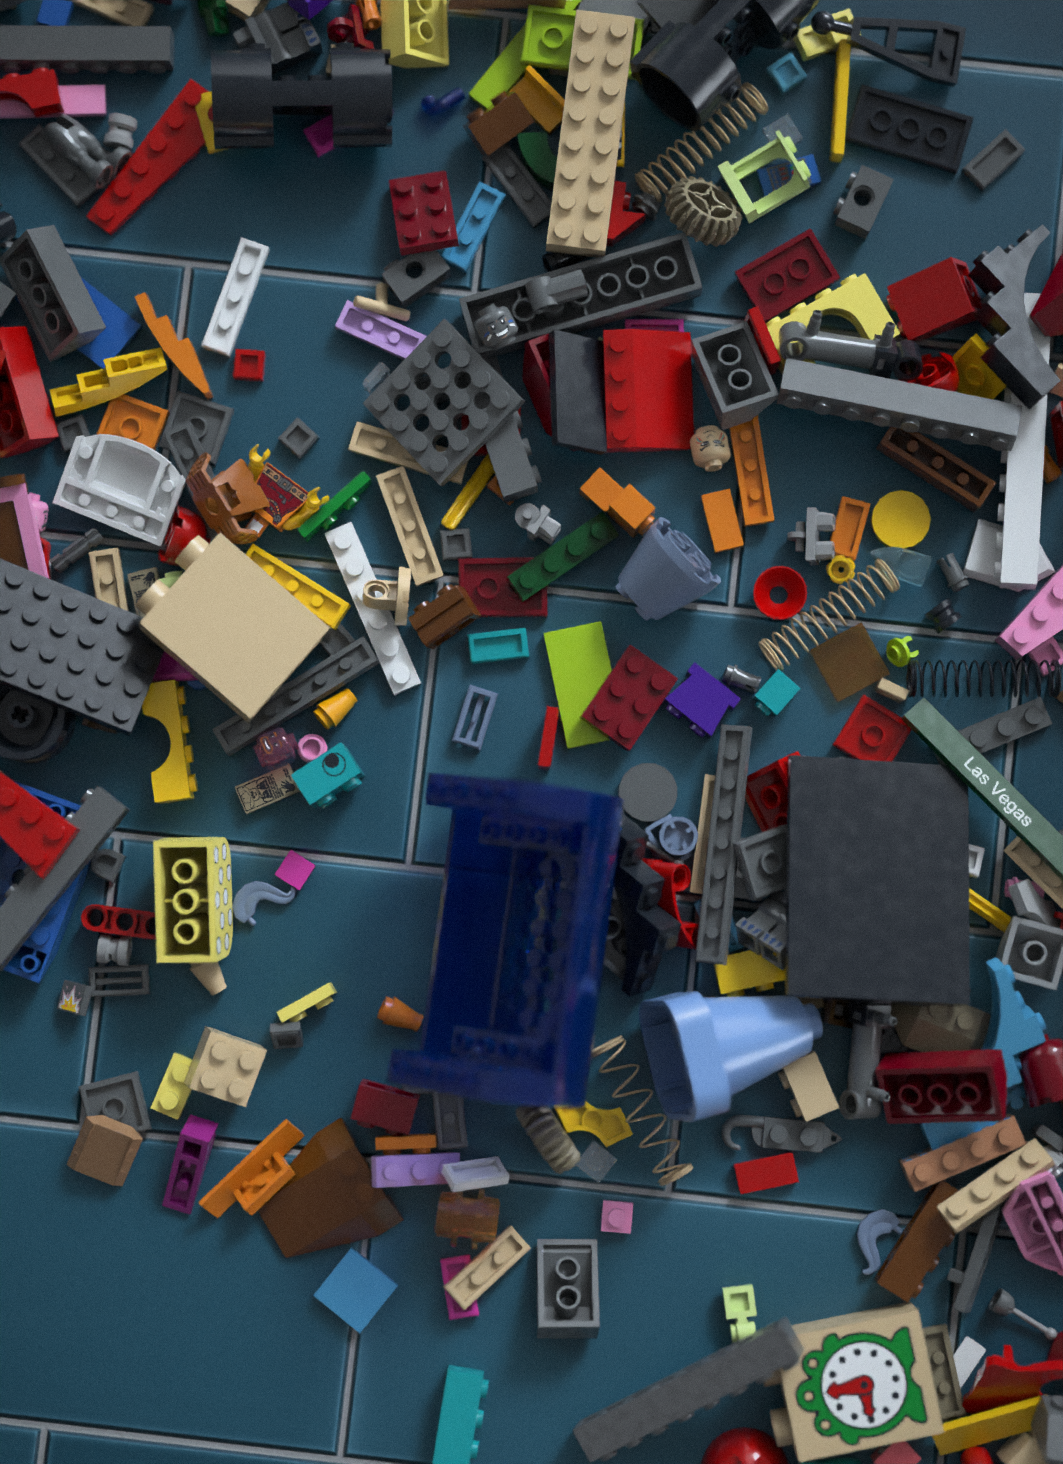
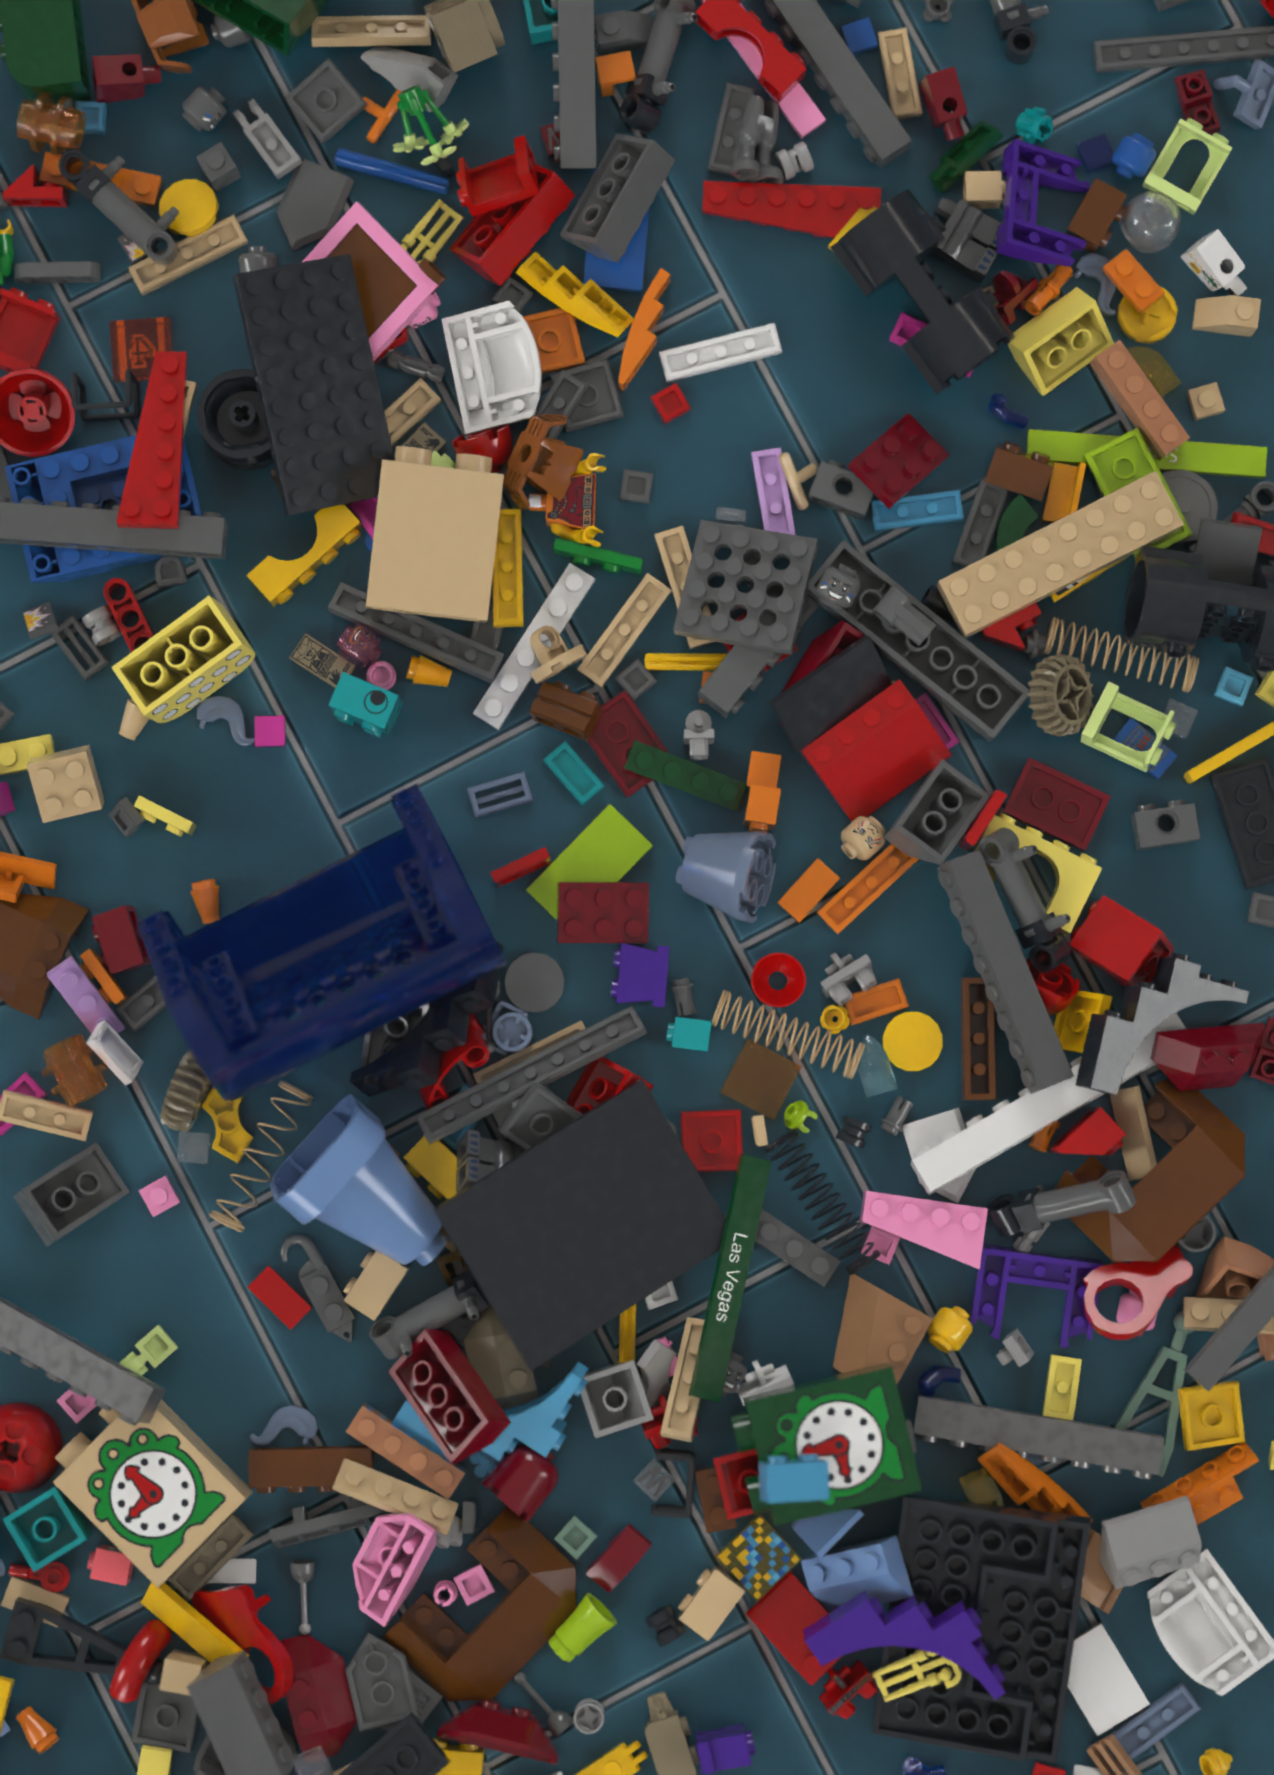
camera: 50 degrees right, 0 degrees up
(744, 1402) = (76, 1405): none -> bright pink plate

